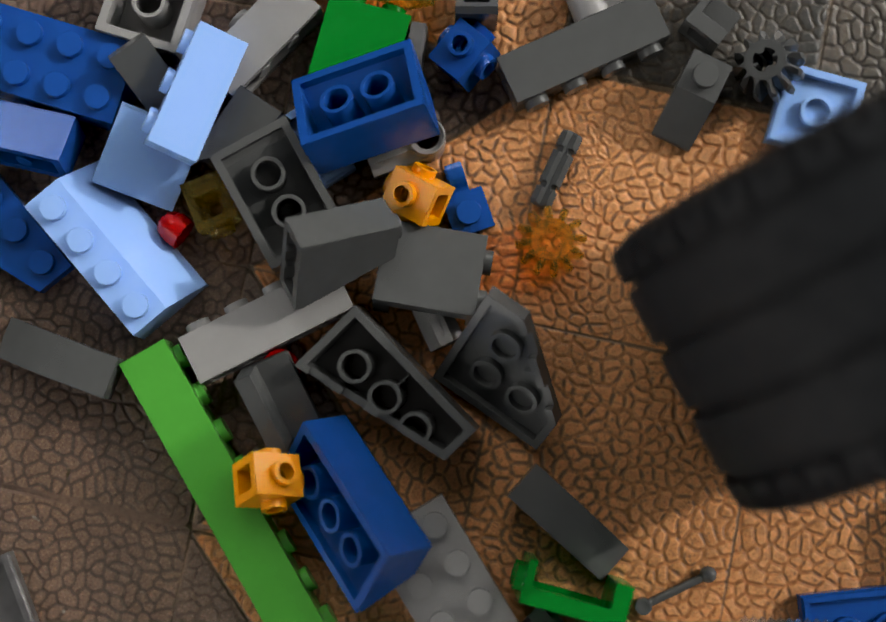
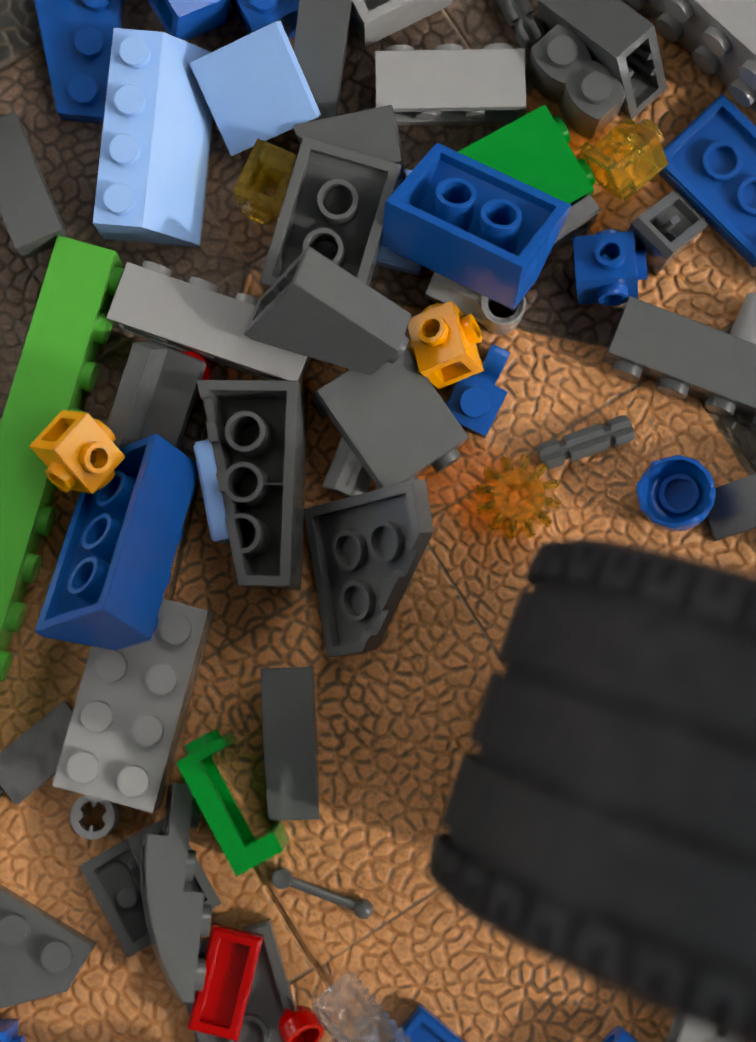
camera: 50 degrees right, 0 degrees up
(174, 228) = (219, 172): red hinge -> none
(193, 92) = (344, 69): light blue brick -> none
(369, 422) = (212, 497): none -> light blue tile
(640, 145) = (676, 493): none -> blue hair

